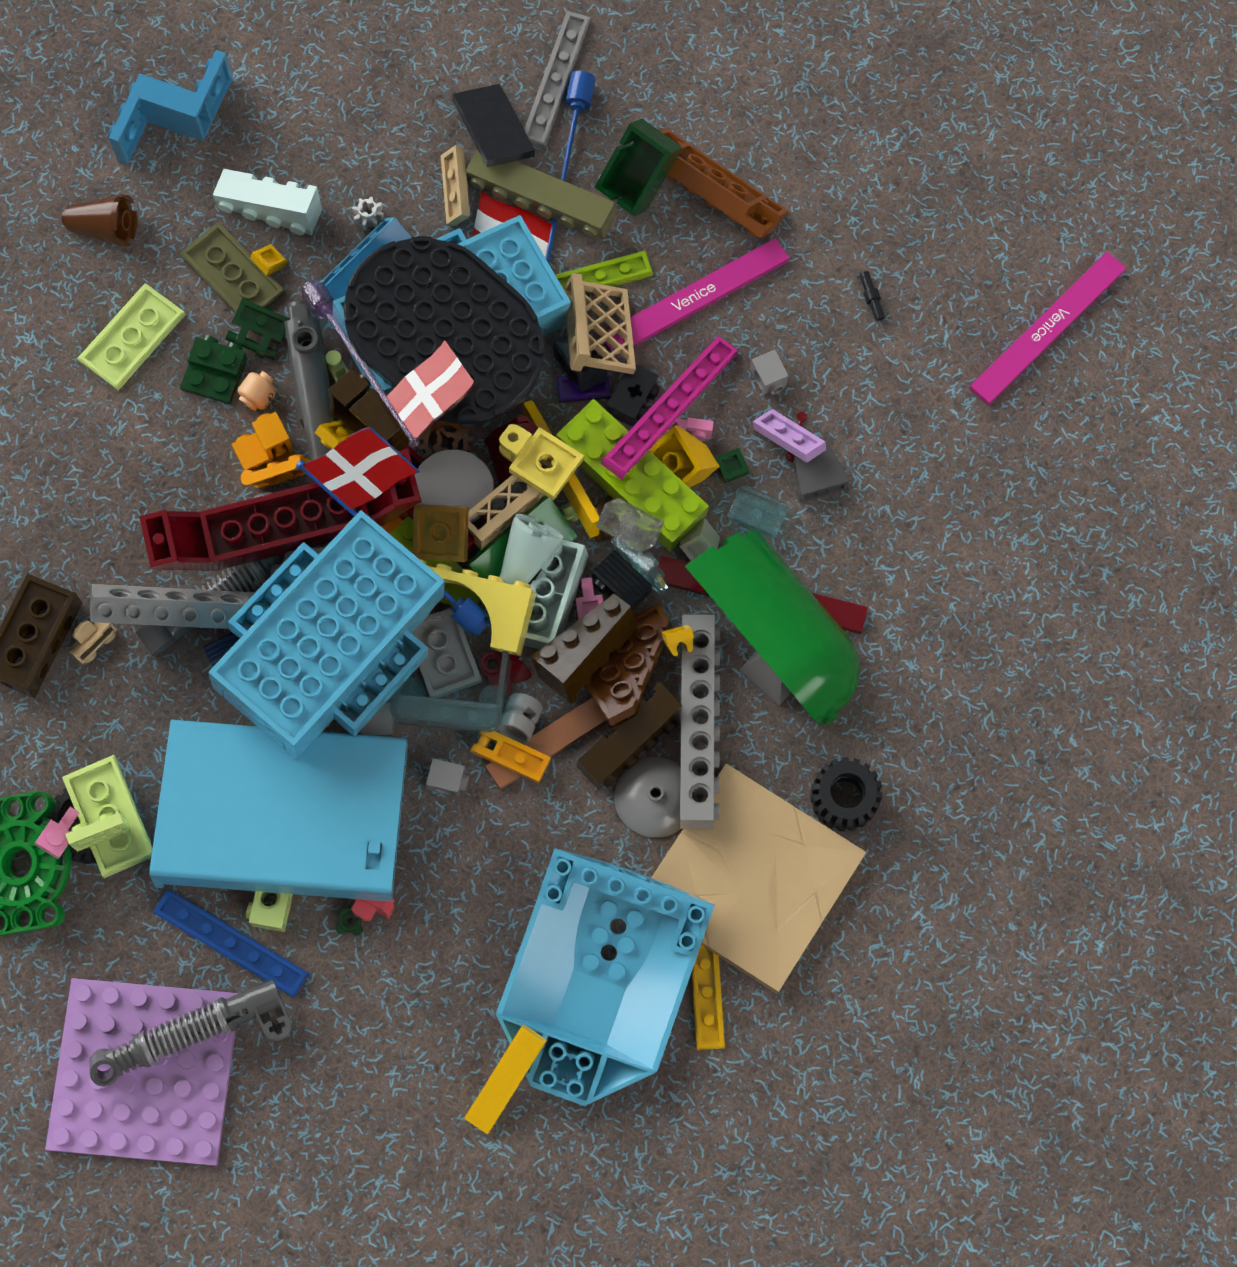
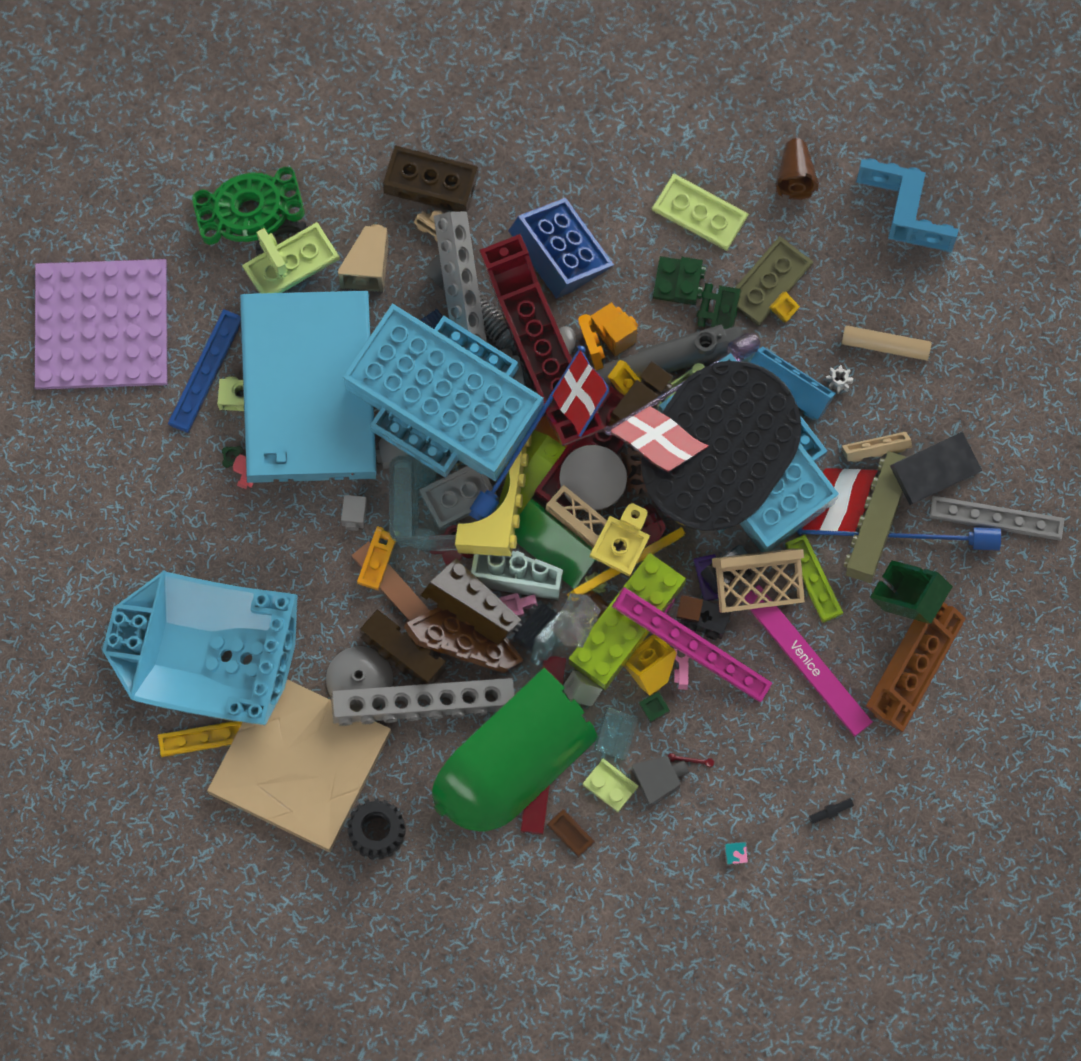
camera: 85 degrees right, 0 degrees up
(53, 836) = (269, 222): bright pink plate -> none
(125, 720) = (367, 261): none -> tan slope
(141, 488) = (561, 247): none -> blue slope
(192, 1029) = (142, 368): dark grey piece -> none
(257, 390) = (664, 316): light nougat head -> none
(269, 201) = (836, 297): light aqua wedge -> none
(335, 153) = (886, 343): none -> tan brick
(440, 532) = (549, 471): pearl gold plate -> none
(505, 1079) = (116, 587): yellow tile -> none
(520, 717) = (400, 561): light grey wheel -> none
(528, 548) = (549, 544): light aqua cone -> none
(625, 405) = (689, 608): none -> reddish brown tile
(680, 634) = (489, 672): yellow tile -> none
(769, 373) = (742, 729): light grey brick -> none
(789, 435) = (684, 749): lavender plate -> none
(817, 526) = (610, 785): none -> yellowish green plate
(869, 577) = (570, 833): none -> reddish brown tile
(910, 402) = (736, 853): none -> tile
(1047, 328) = (825, 968): dark pink tile -> none

